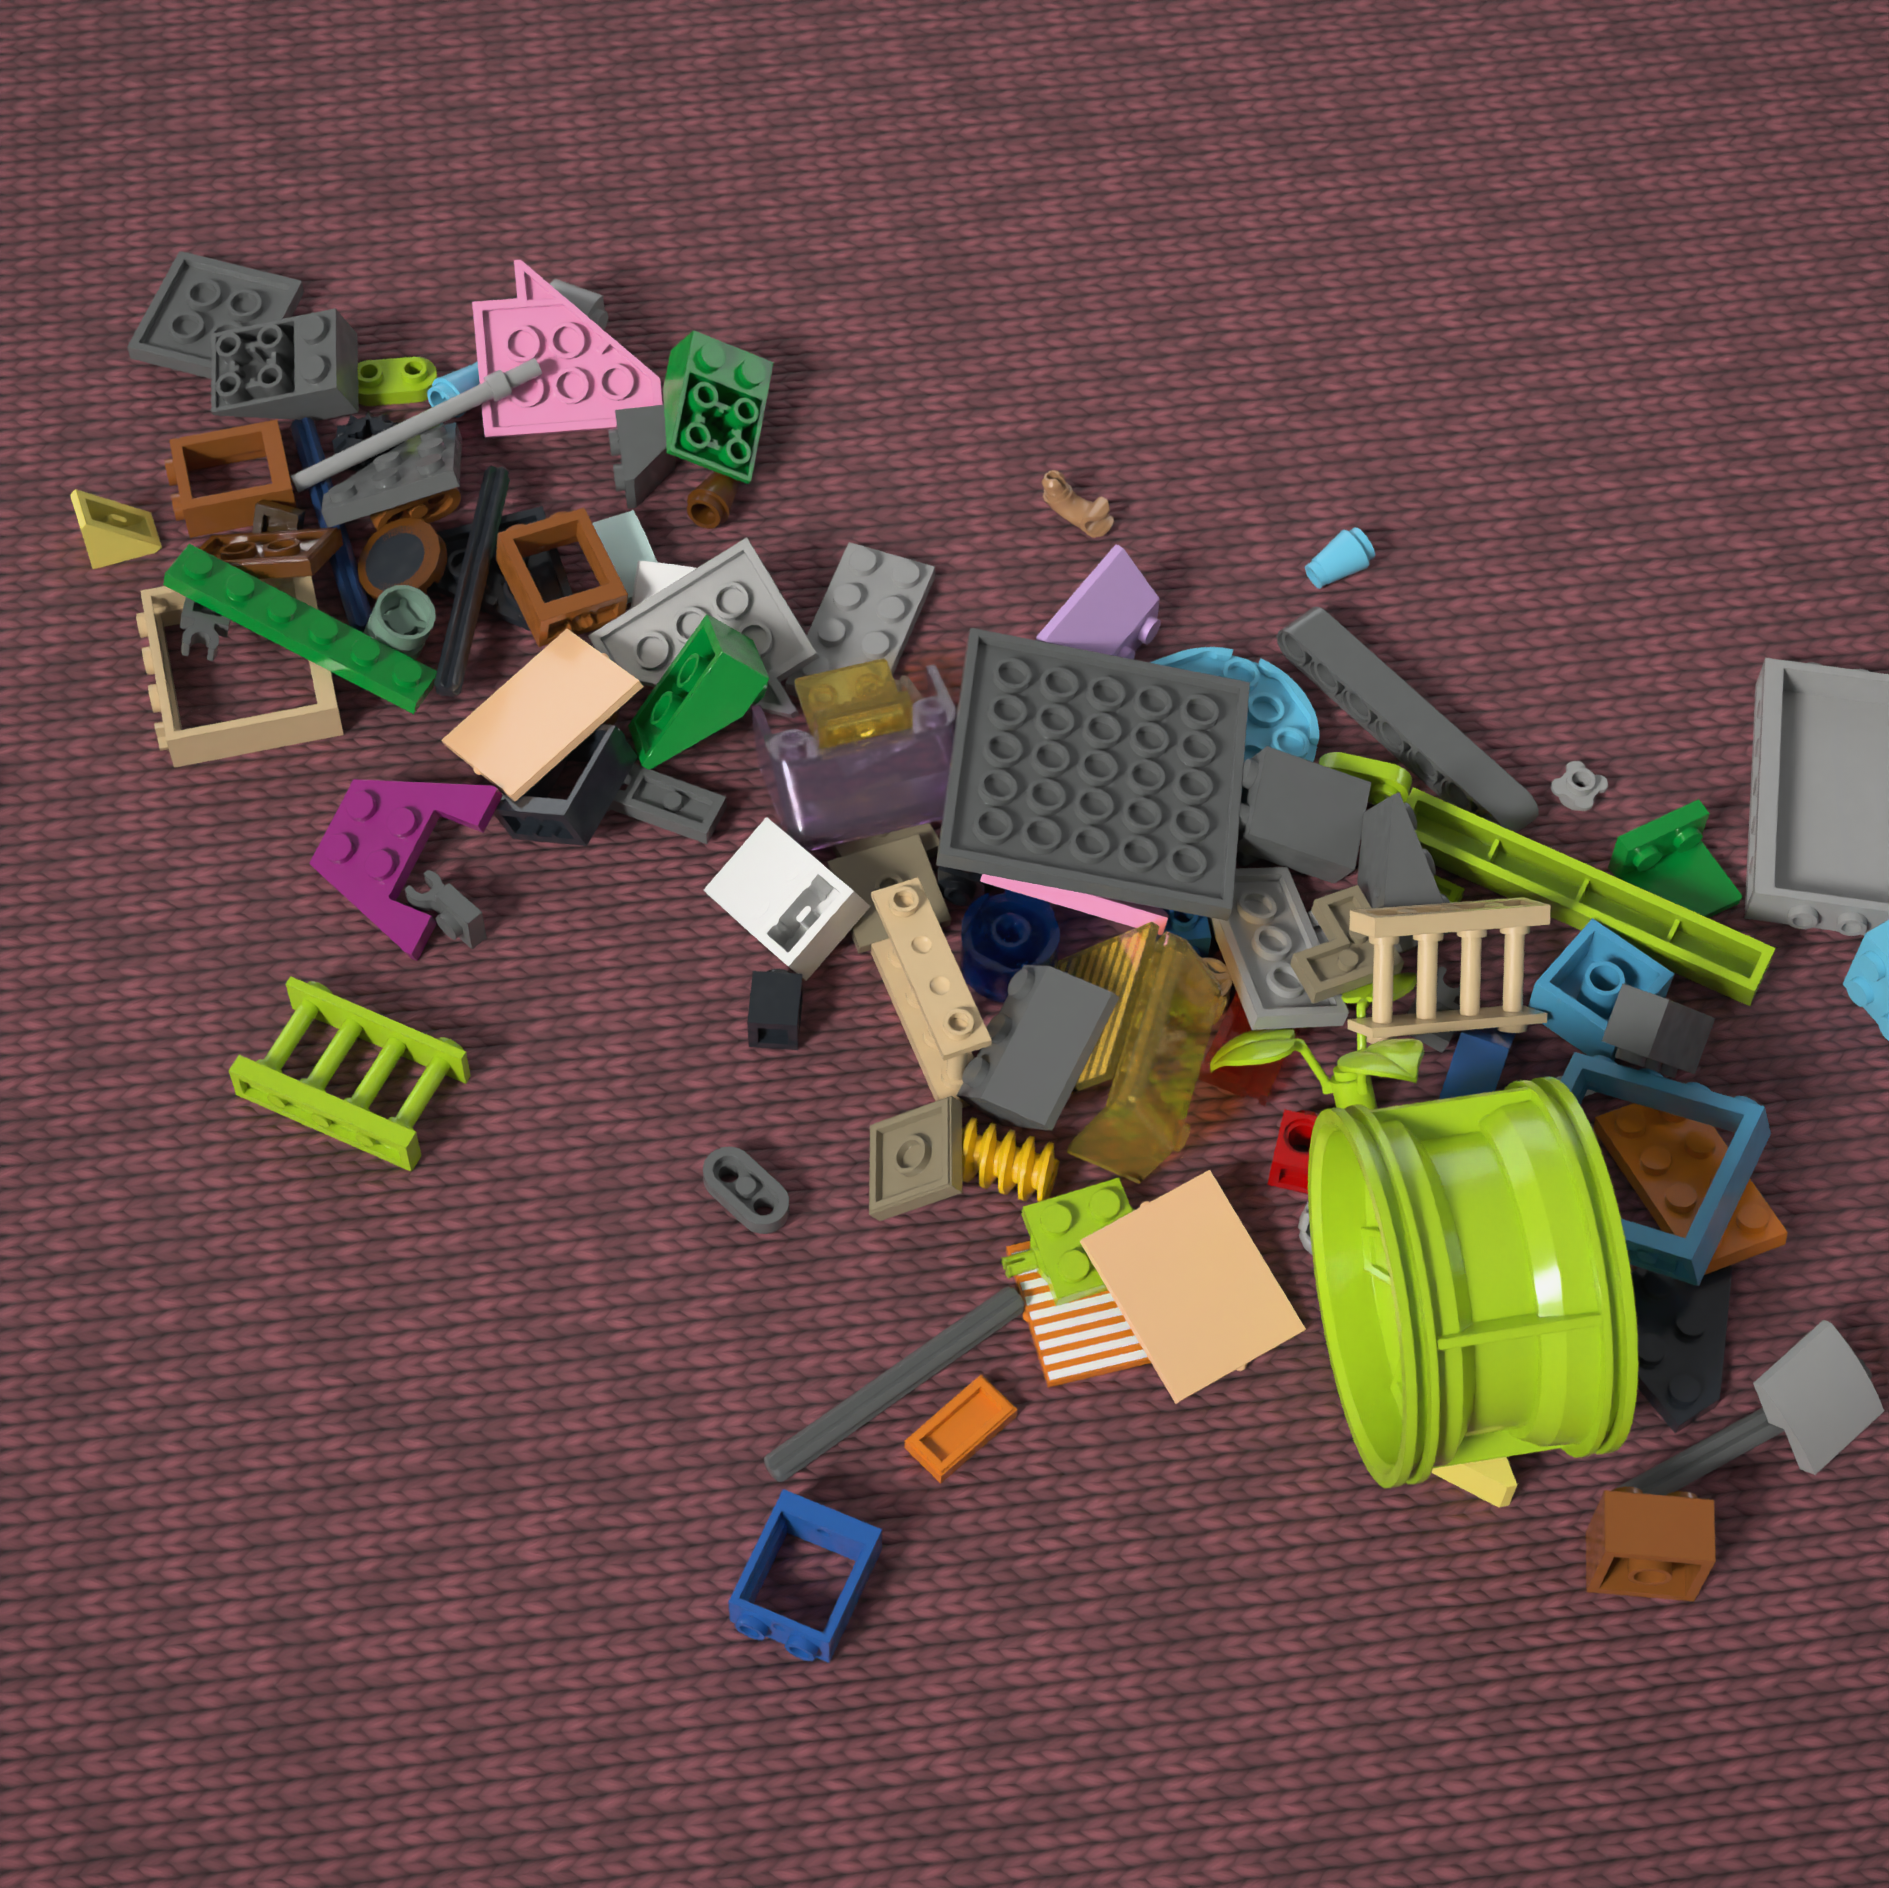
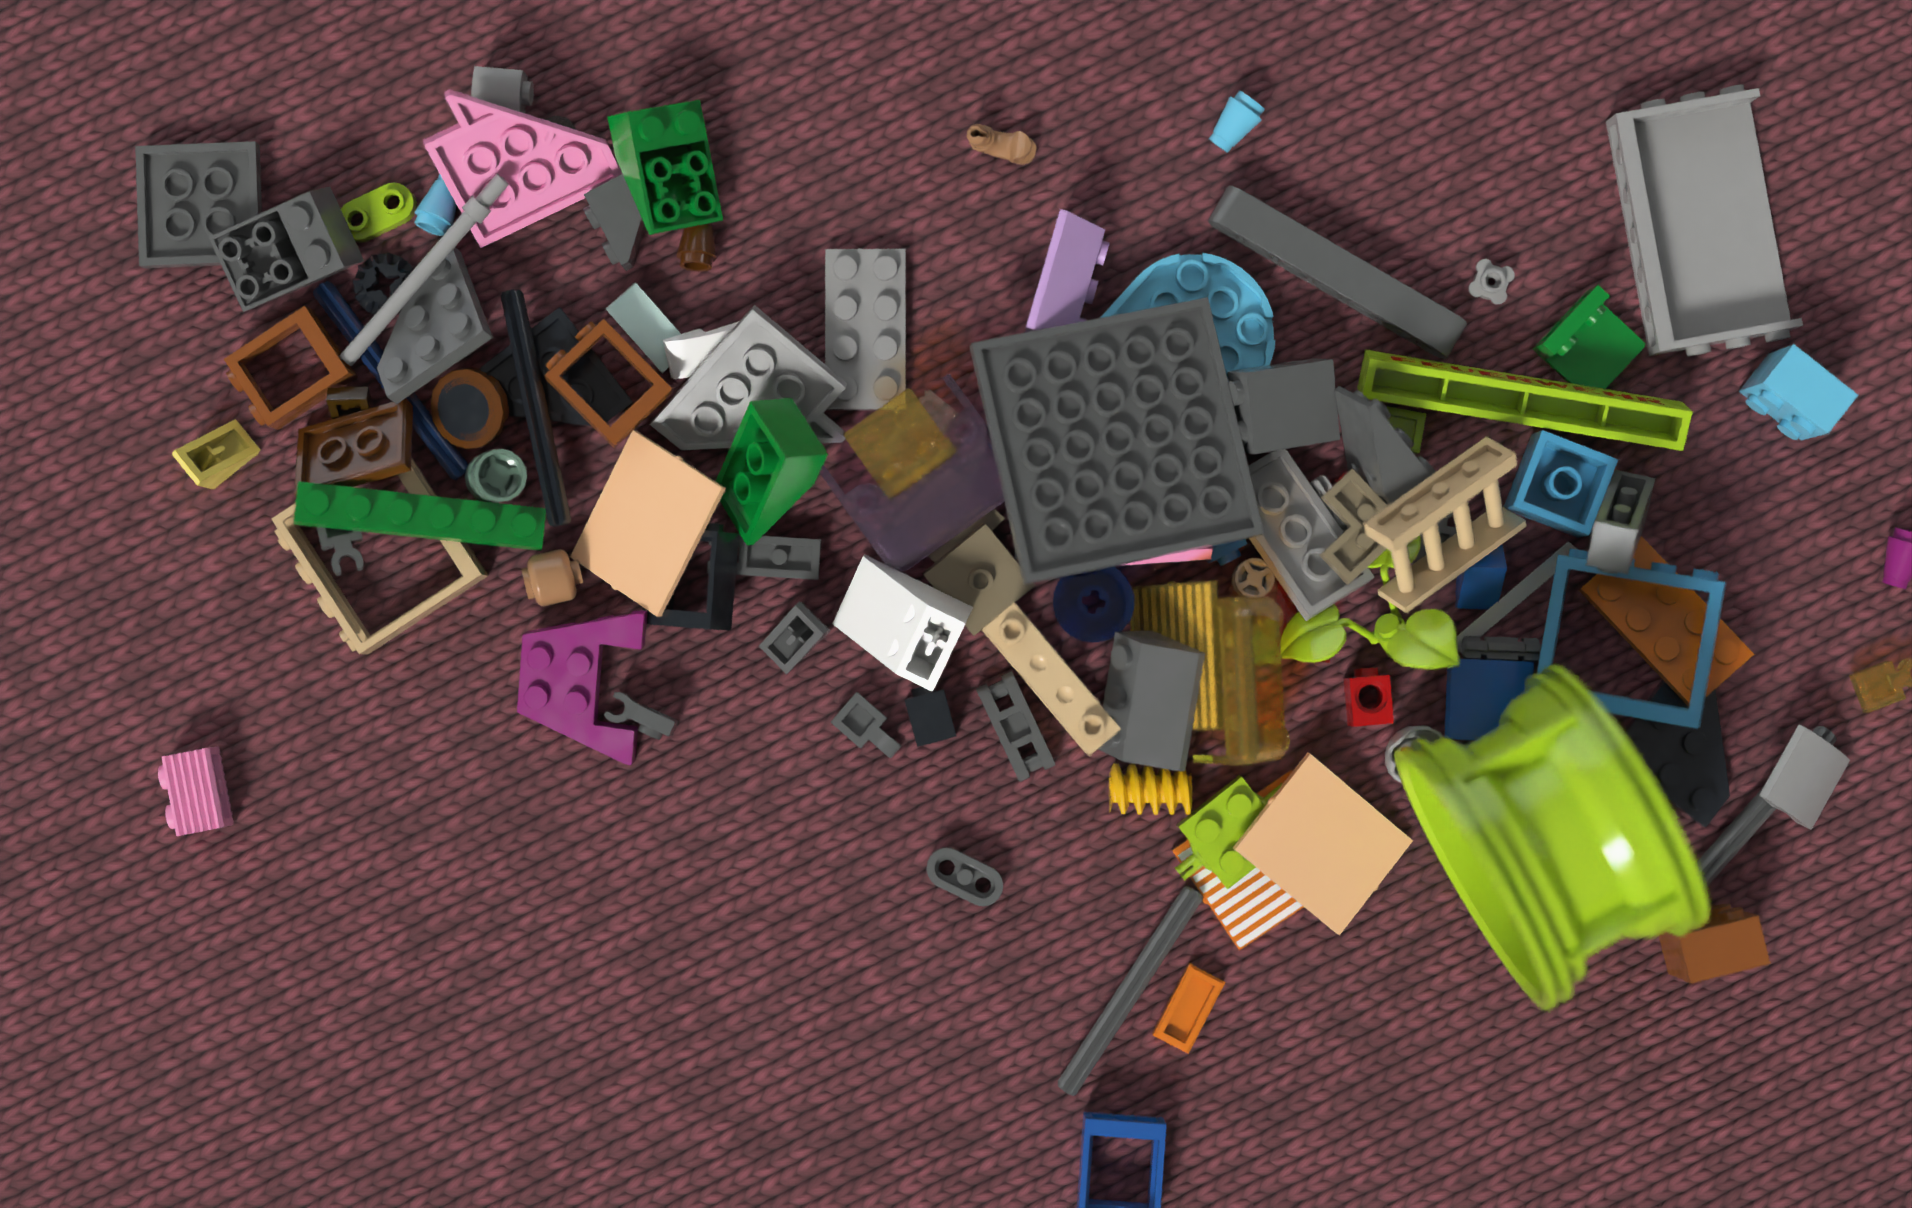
camera: 15 degrees left, 30 degrees up
(349, 1118) = (606, 916): lime fence -> none
(412, 743) = (551, 577): none -> medium nougat head
(658, 881) = (794, 637): none -> dark grey slope
(697, 993) = (862, 723): none -> dark grey plate
(871, 1055) = (1015, 726): none -> dark grey plate
(915, 1158) = (1084, 812): dark tan plate -> none
(1384, 777) = (1302, 343): lime plate -> none

